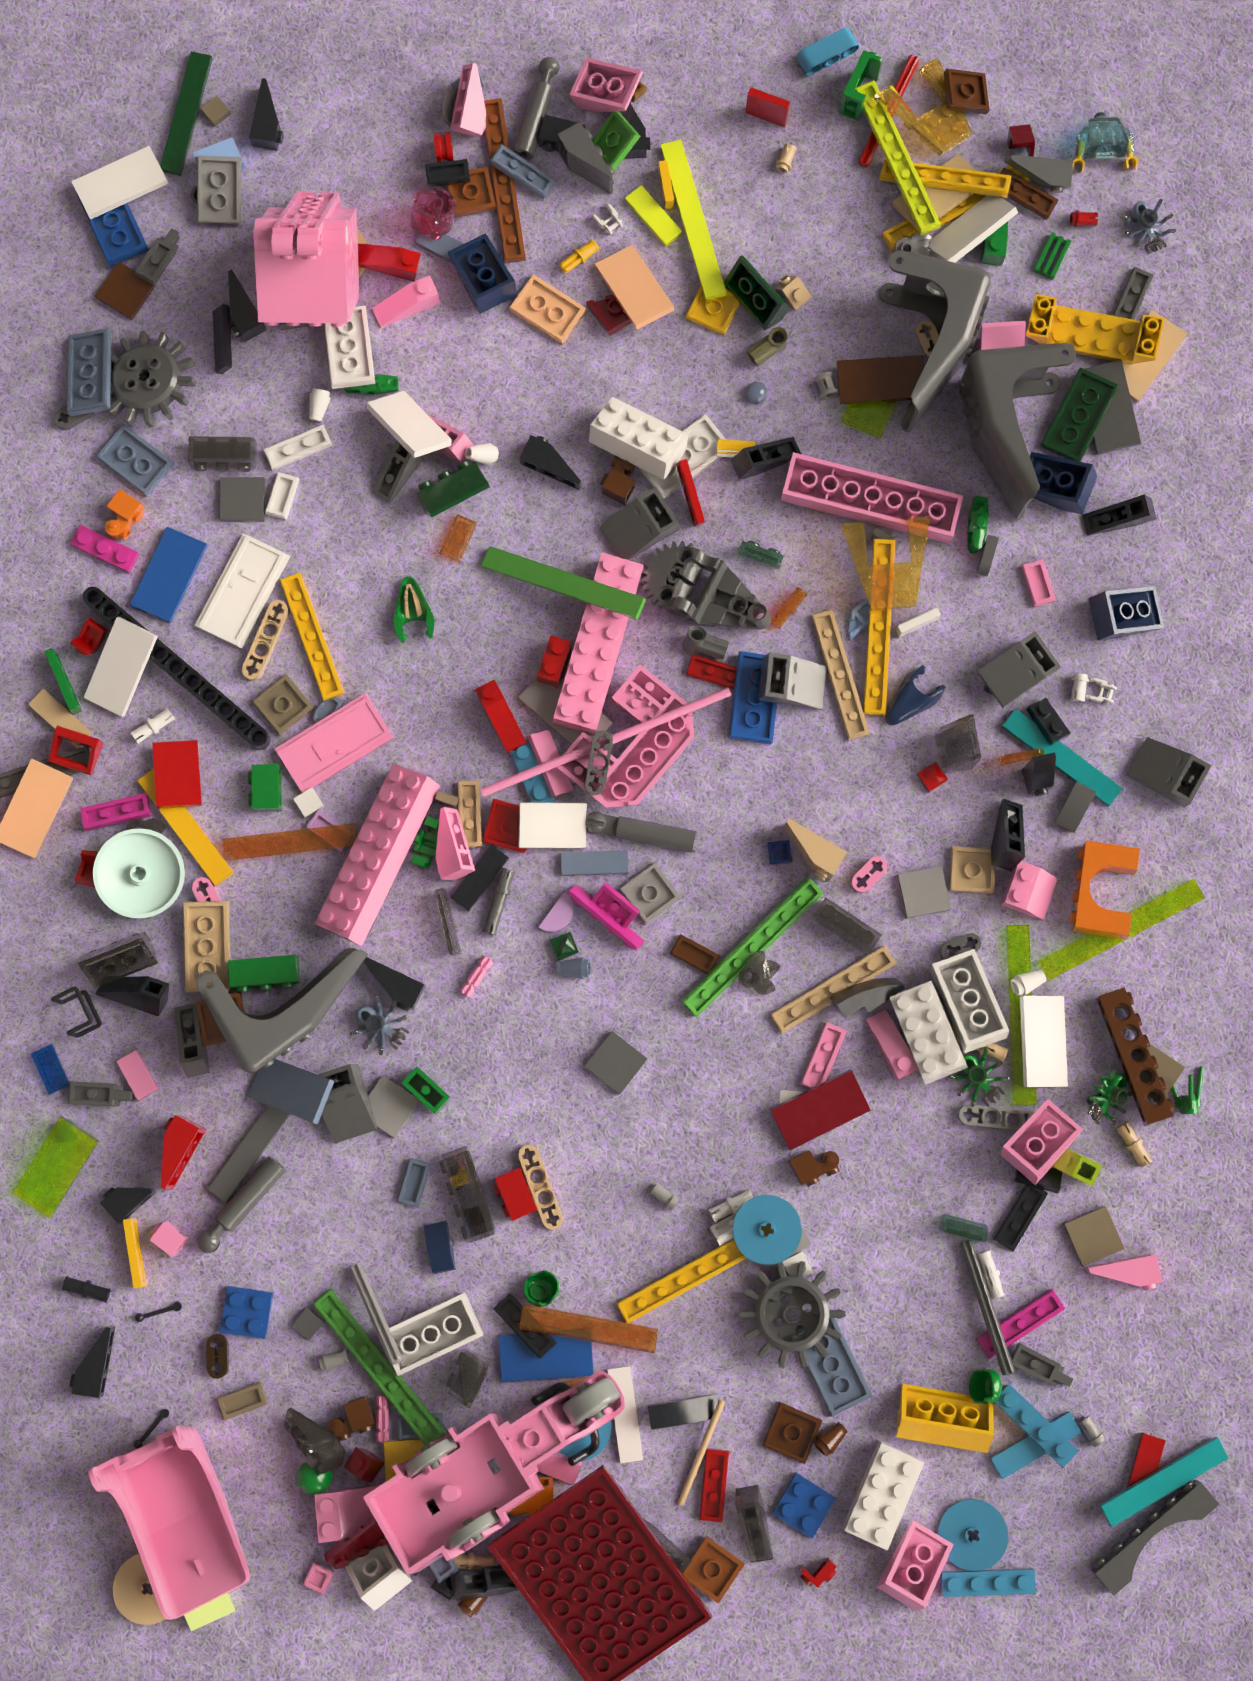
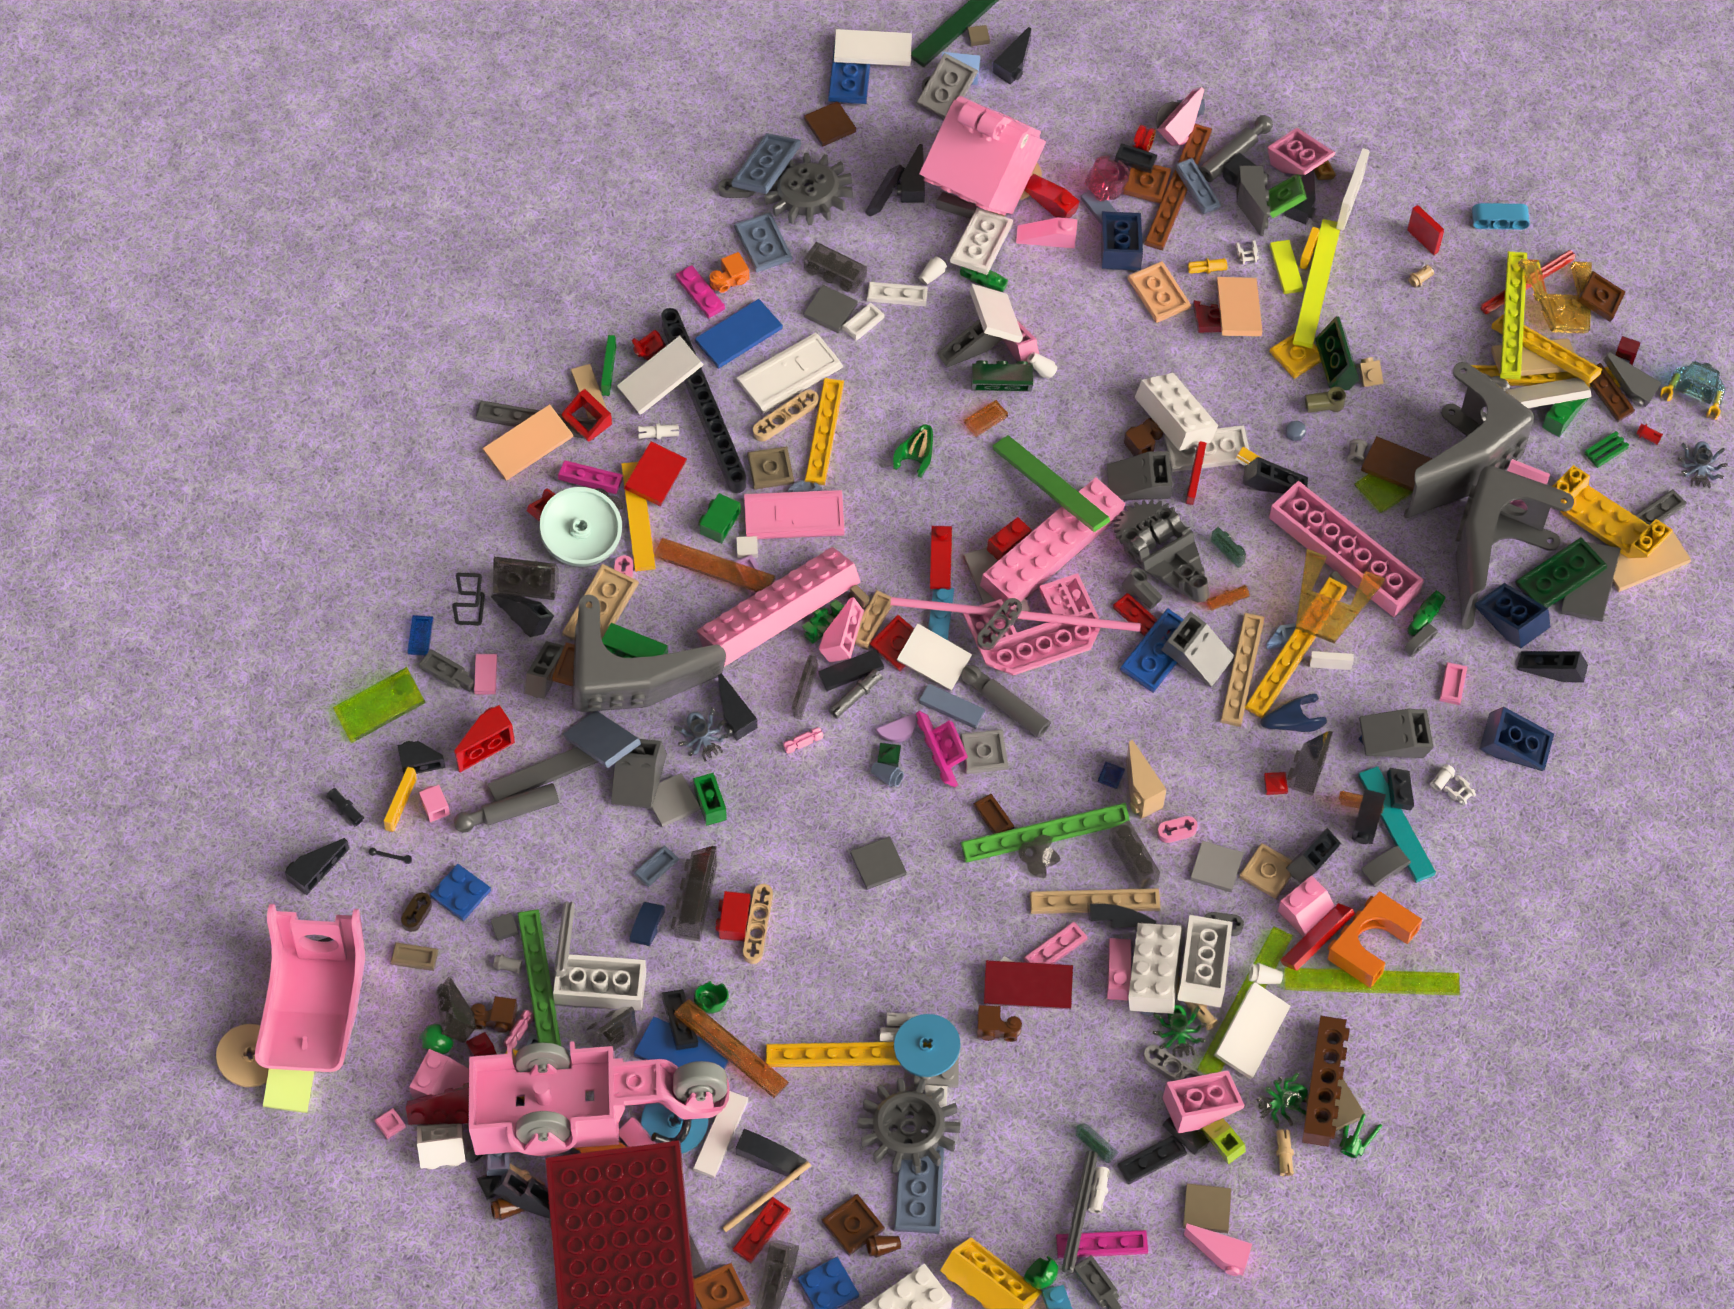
camera: 30 degrees right, 20 degrees down
(158, 257) = (870, 112): dark grey hinge -> none
(543, 458) = (1090, 393): black slope -> none
(546, 750) = (958, 628): bright pink tile -> none
(664, 1196) = (858, 988): light grey pin -> none
(676, 99) = (1353, 189): none -> white tile
(853, 101) = (1520, 239): green panel -> none
(1053, 916) = (1317, 937): none -> red tile
(1168, 771) = (1484, 878): dark grey slope -> none

